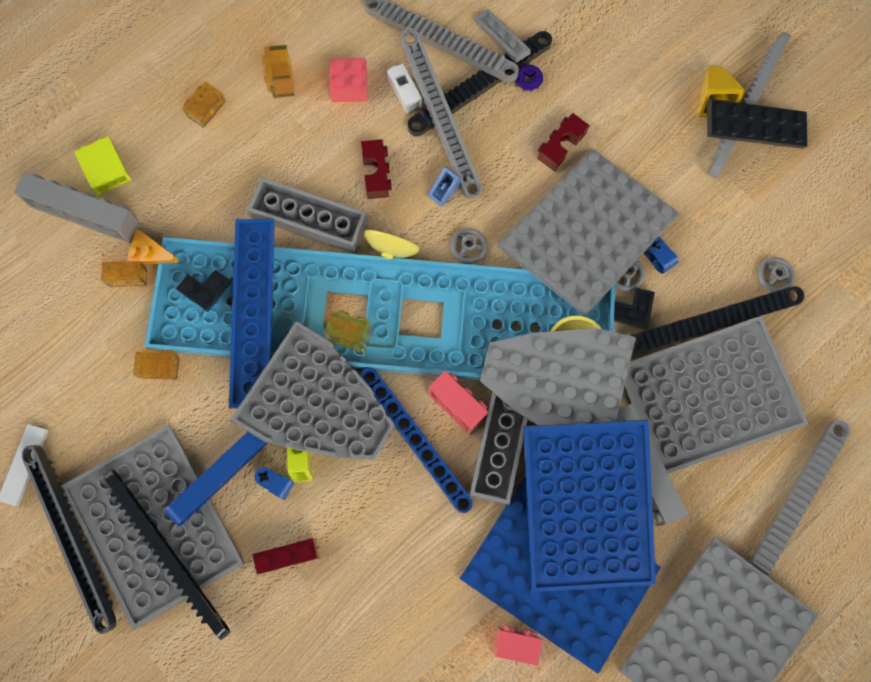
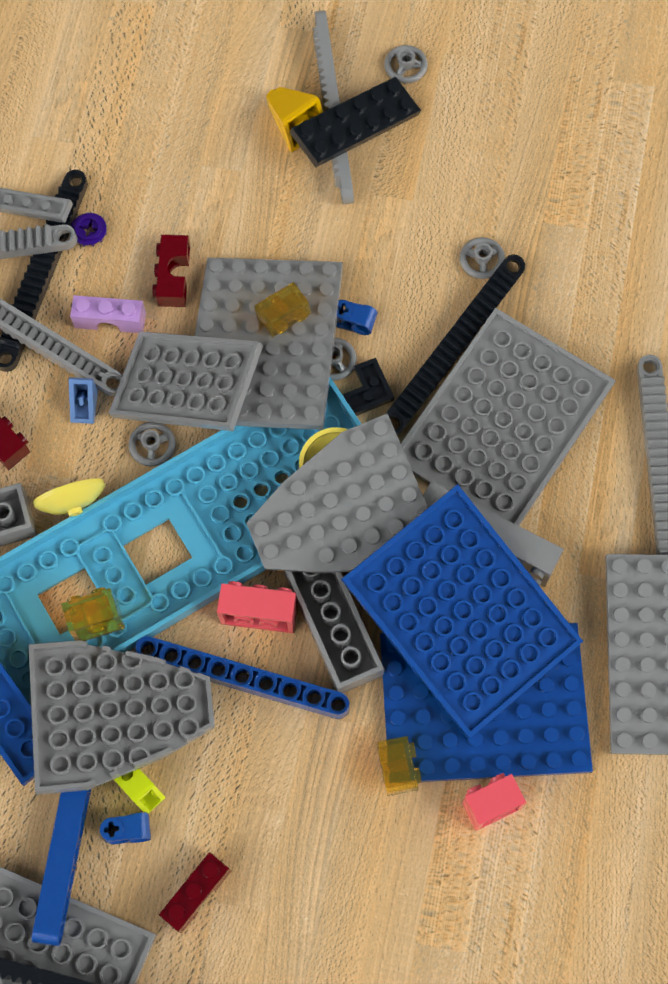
camera: 30 degrees left, 5 degrees down
(472, 574) = (398, 766): none -> clear yellow brick
(511, 148) = (124, 313): none -> lavender arch
(519, 221) = (186, 380): none -> light grey plate
(616, 217) = (282, 309): none -> clear yellow brick
(821, 106) = (406, 61): none -> light grey piece

